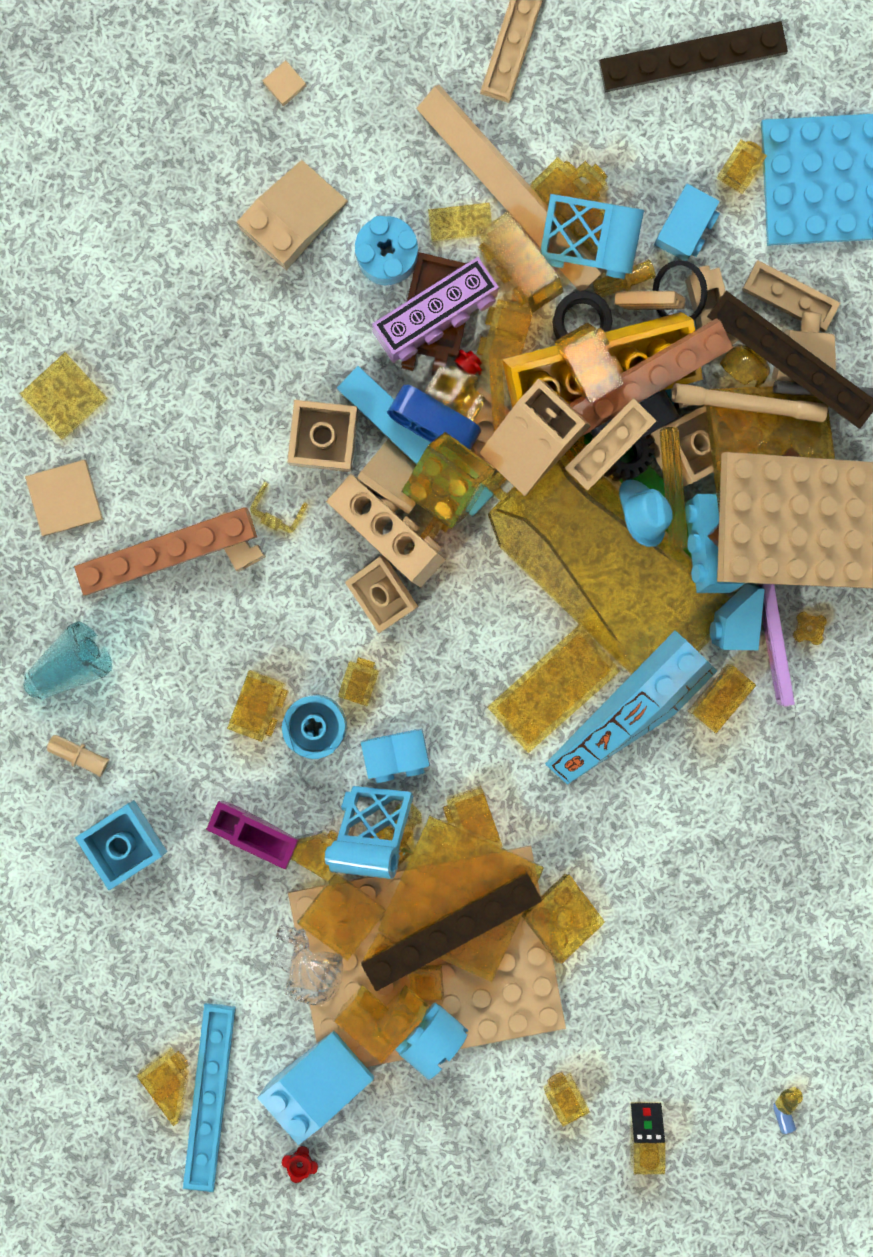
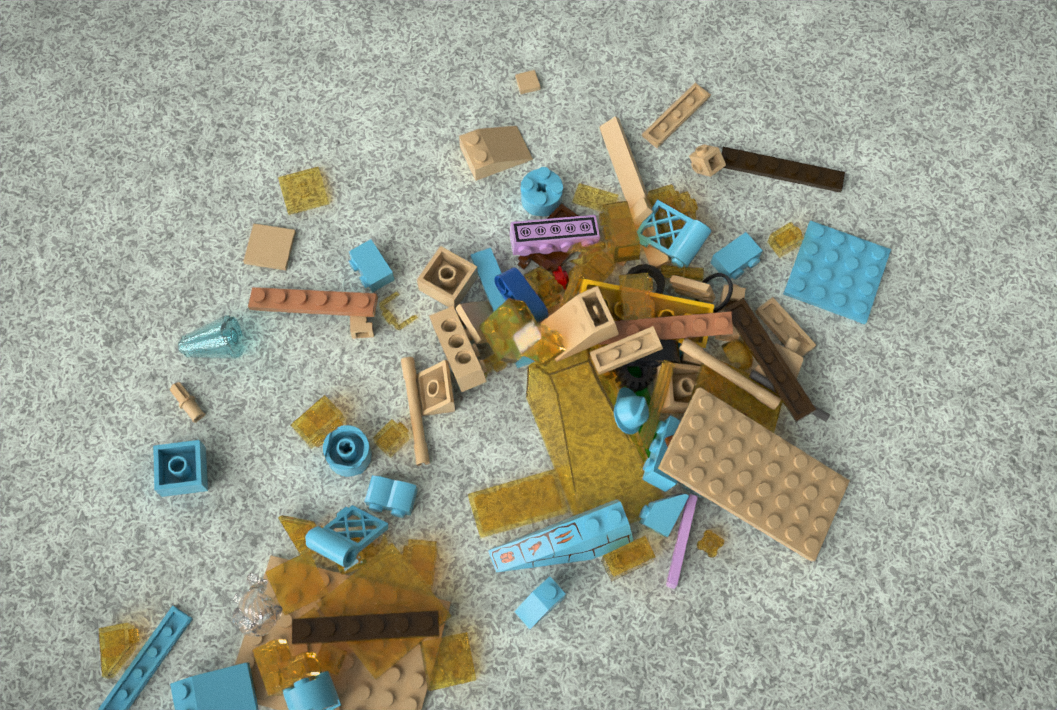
camera: 25 degrees right, 20 degrees down
(213, 464) = (371, 265): none -> medium azure brick
(252, 834) = (268, 500): magenta slope -> none
(398, 672) = (420, 444): none -> tan piece
(475, 317) = (585, 251): none -> clear yellow bar
(497, 490) = (539, 342): none -> clear yellow brick
(534, 218) = (641, 211): none -> tan tile
(589, 95) = (707, 160): none -> tan brick
(638, 798) = (540, 602): none -> medium azure slope

